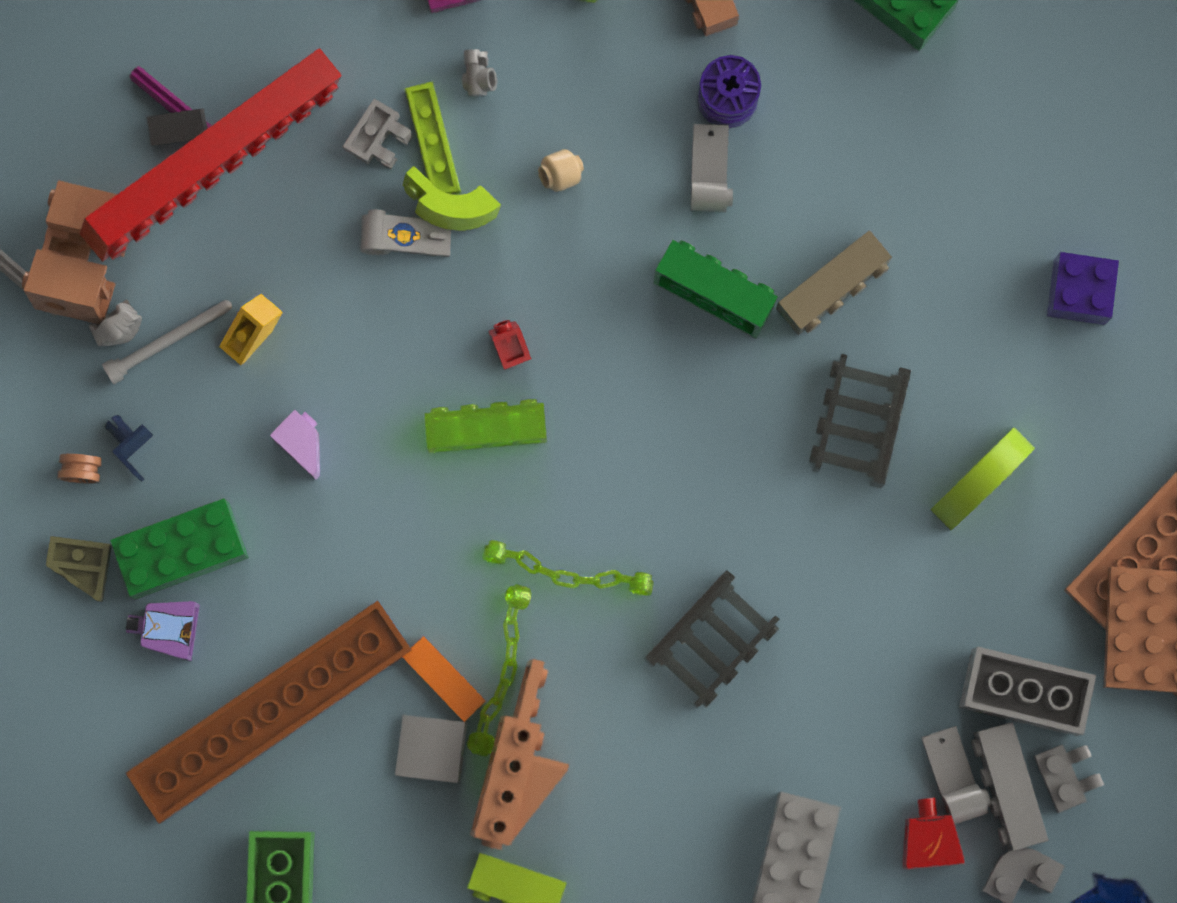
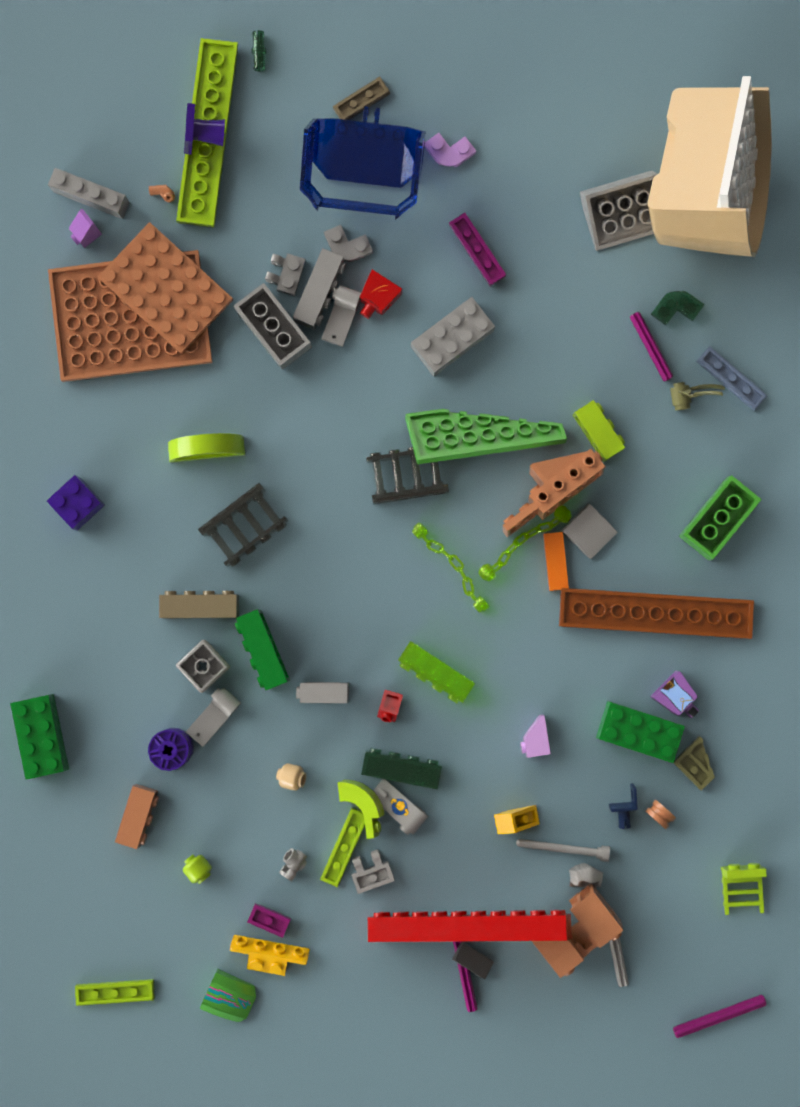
camera: 135 degrees left, 5 degrees up
(436, 280) = (401, 769): none -> clear green brick
(601, 295) = (323, 692): none -> light grey window
(691, 735) = (451, 435): none -> bright green wing
(785, 204) = (215, 666): none -> light grey brick

